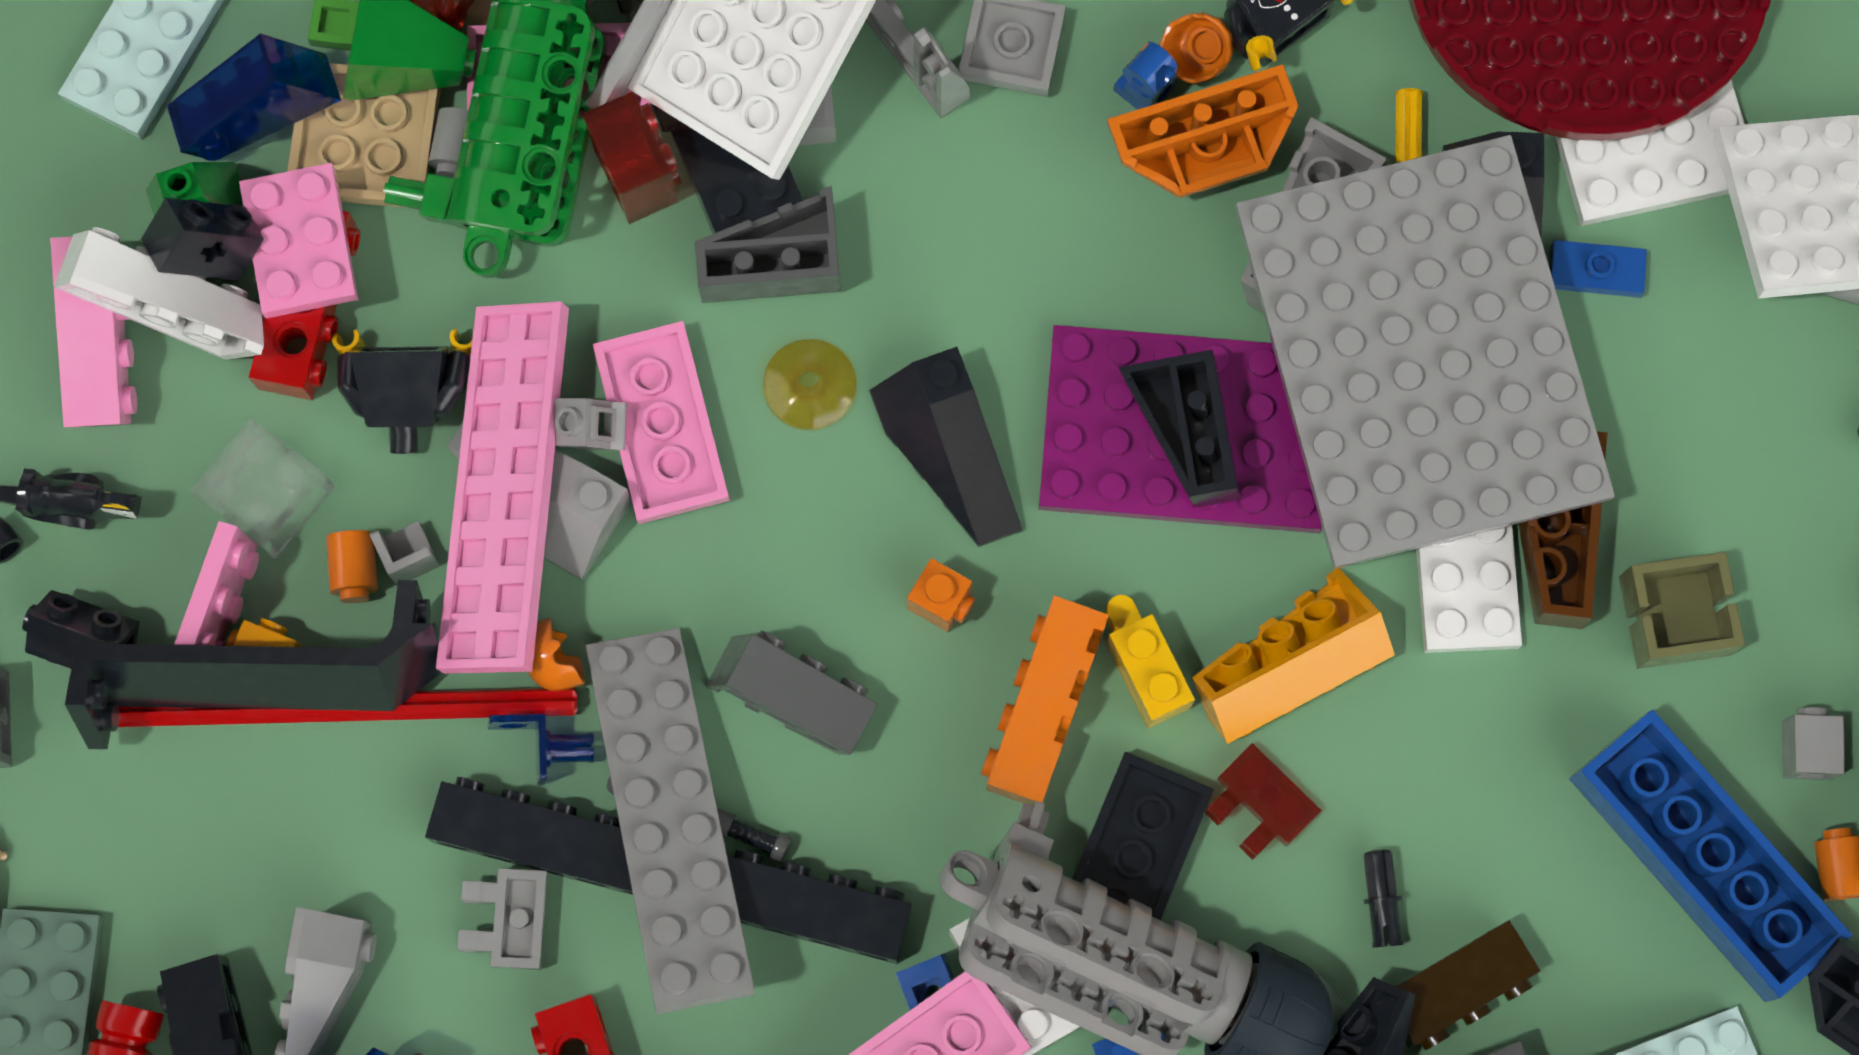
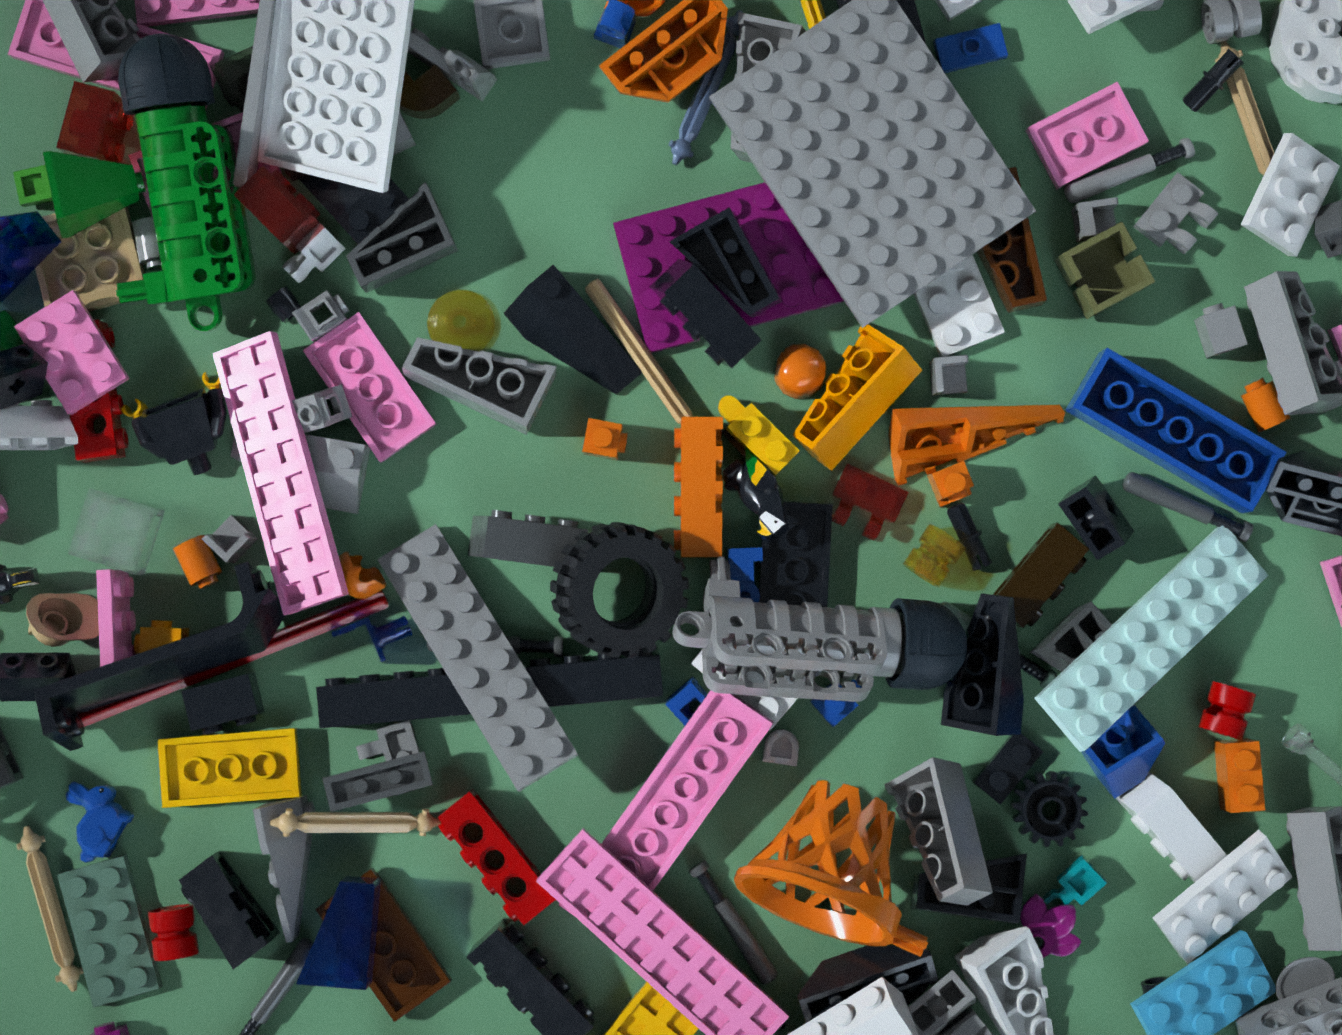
camera: 20 degrees left, 10 degrees up
(90, 860) = (102, 821): none -> blue animal
(147, 573) = (62, 618): none -> tan piece
(285, 849) = (229, 767): none -> yellow plate
(311, 760) = (223, 702): none -> black brick
(423, 980) = (355, 822): none -> tan wheel
(473, 935) = (377, 781): none -> dark grey plate
(591, 279) = (283, 304): none -> black hose
(614, 311) = (309, 323): none -> light grey window
(660, 227) = (317, 250): none -> white plate
(811, 466) = (487, 383): none -> light grey wedge
(873, 84) = (427, 95): none -> dark brown brick
(949, 811) = (658, 606): none -> black tyre
(1026, 496) = (638, 350): none -> tan axle
(1064, 827) = (742, 569): none -> blue leg
(1120, 731) = (757, 490): none -> black animal
(1133, 478) = (705, 313): none -> black wedge
(1223, 214) = (700, 102): none -> sand blue wheel
(1231, 601) = (800, 371): none -> orange hair
(1327, 906) = (934, 555): none -> clear yellow wheel
(1380, 749) = (935, 436): none -> orange wedge
(1382, 818) = (951, 483): none -> orange brick
(1427, 675) = (948, 375): none -> light grey panel
(1564, 933) = (1096, 517): none -> black brick
(1686, 959) = (1173, 500): none -> dark grey piece
(1690, 535) = (1093, 217): none -> light grey panel
(1715, 431) = (1087, 135): none -> bright pink plate
(1732, 496) = (1114, 176): none -> light grey piece
(1795, 564) = (1169, 209): none -> light grey plate

